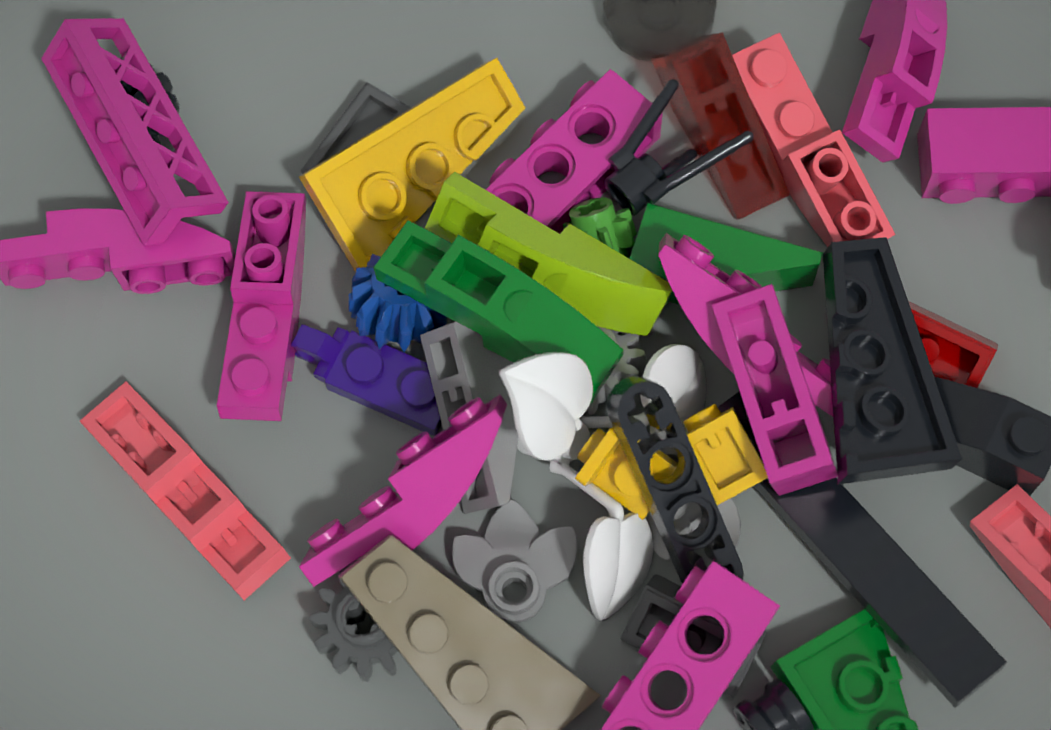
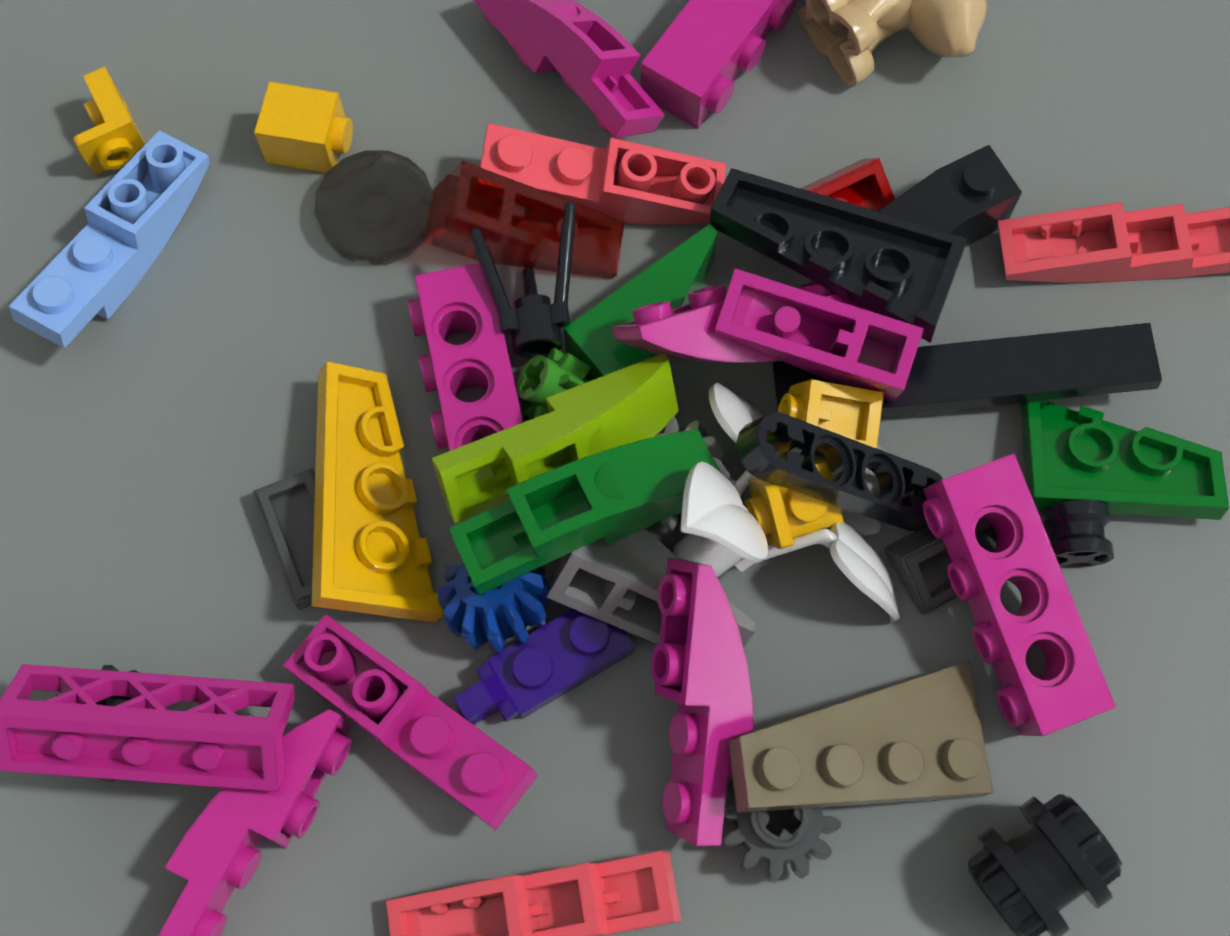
camera: 60 degrees left, 0 degrees up
(515, 554) = (792, 651): light grey plate -> none

